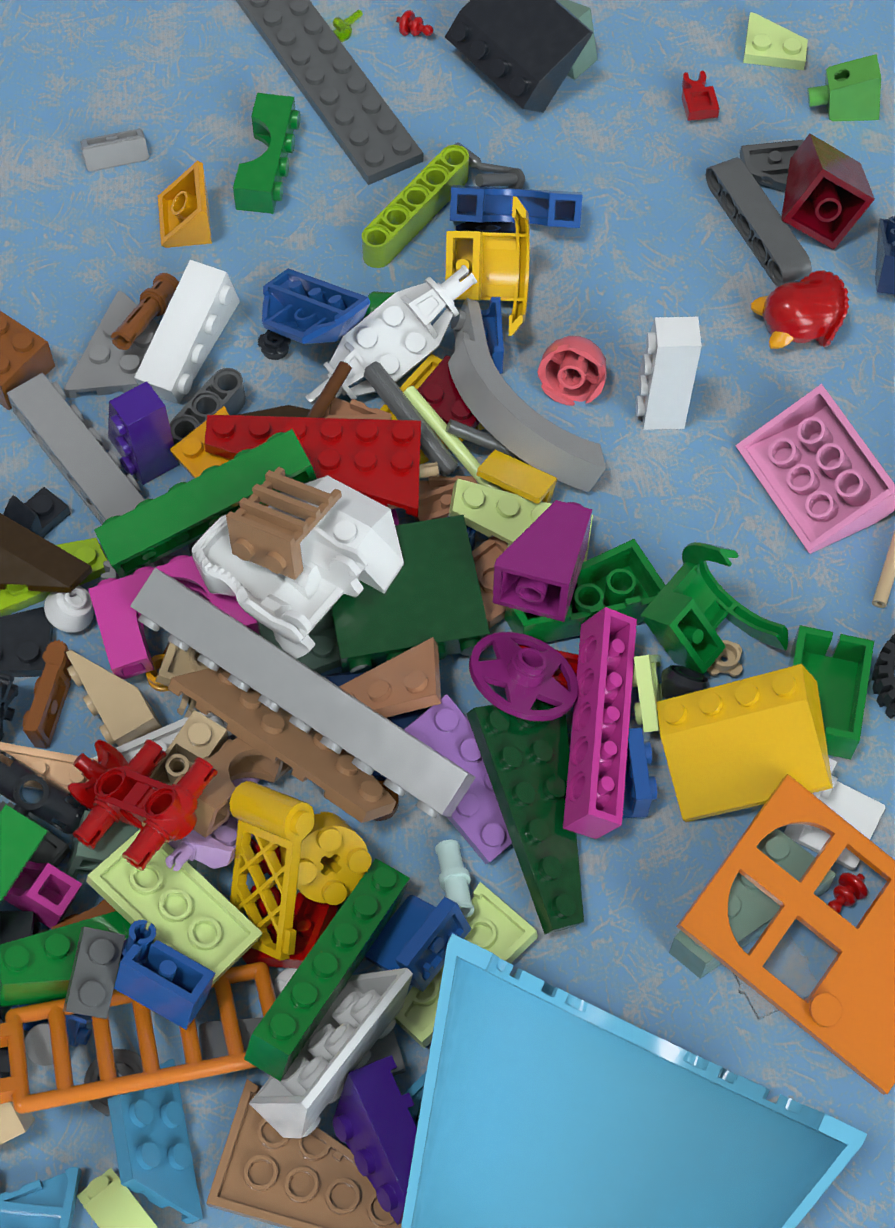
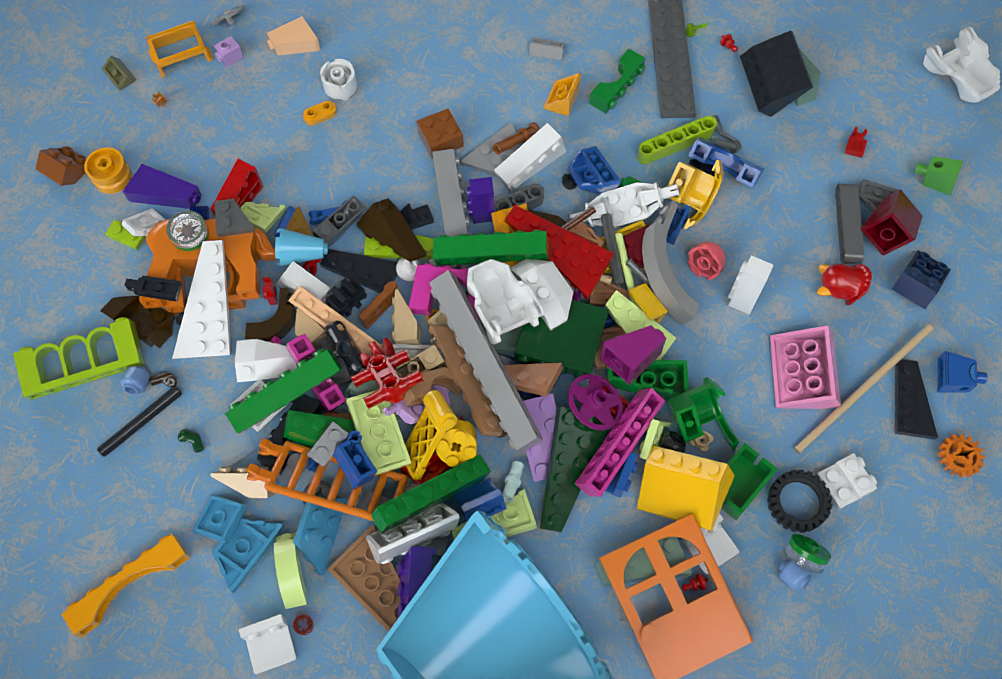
camera: 30 degrees right, 5 degrees up
(271, 536) = (506, 279): medium nougat plate -> none
(773, 45) = (915, 130): yellowish green wing -> none

